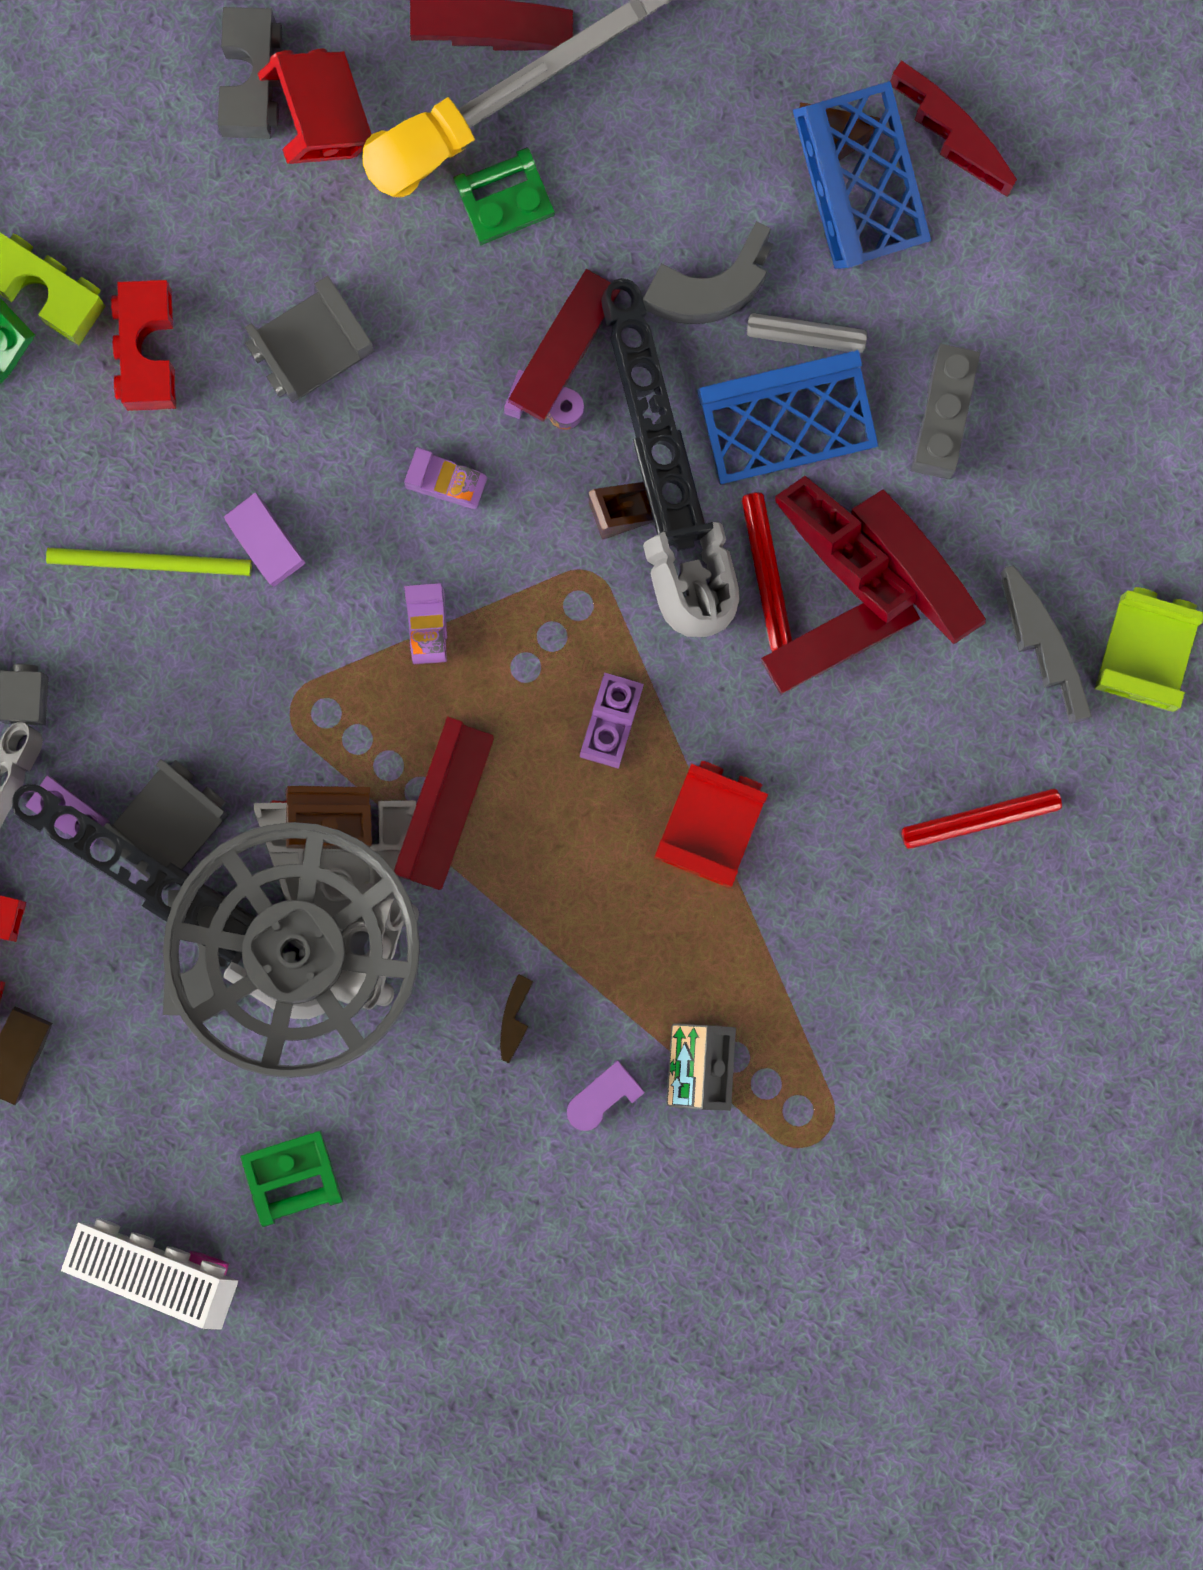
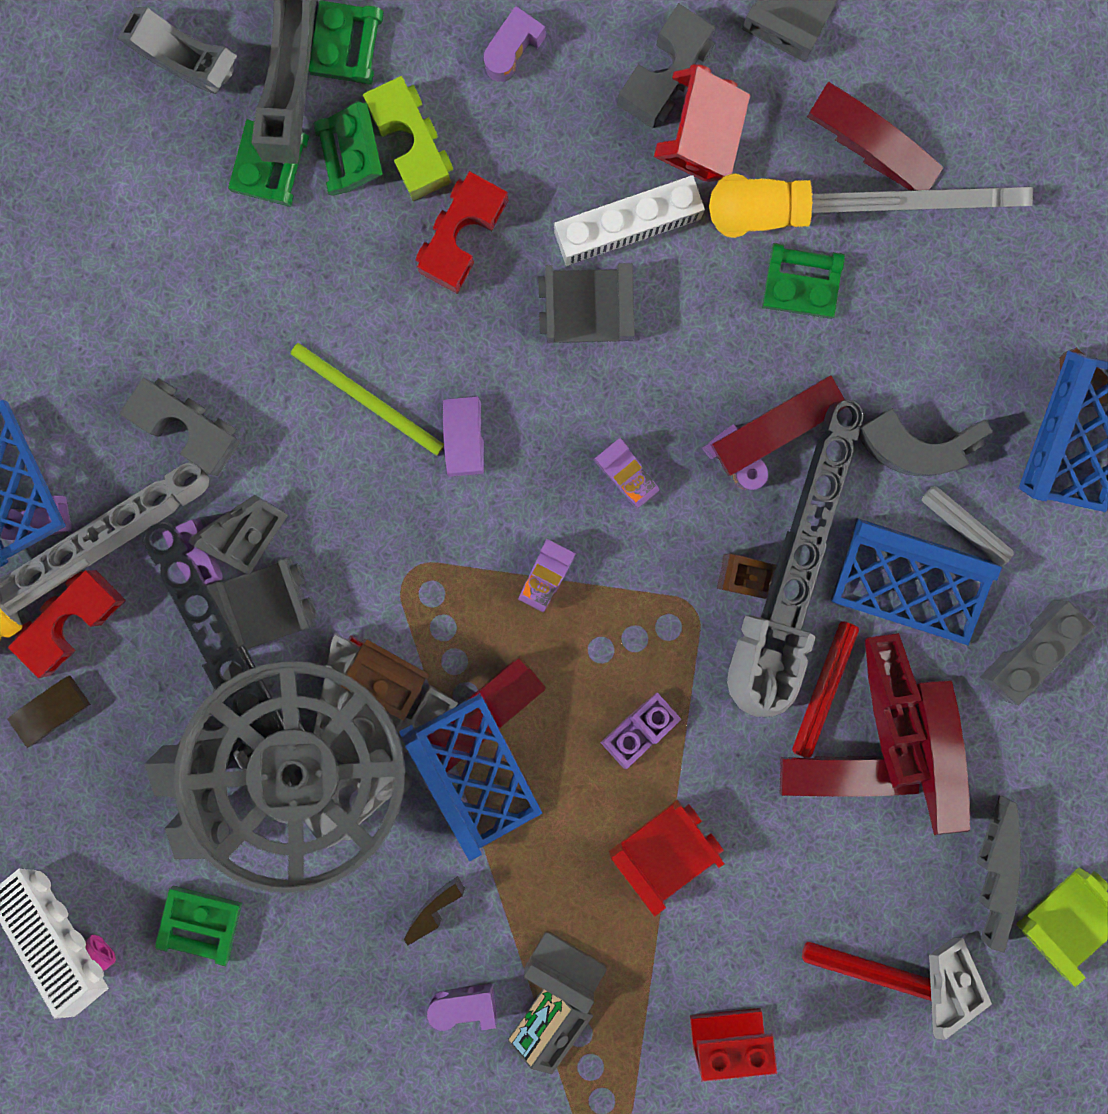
camera: 30 degrees right, 5 degrees up
(84, 139) = (510, 43): none -> medium lavender leg
(104, 762) = (241, 533): none -> dark grey wing
(224, 1083) = (161, 776): none -> dark grey arch
(300, 238) = (629, 220): none -> white brick
(449, 887) = (441, 784): none -> blue fence
(681, 998) = (565, 971): none -> dark grey panel
(882, 962) = (732, 1045): none -> red panel
(1069, 781) = (955, 988): none -> light grey wing

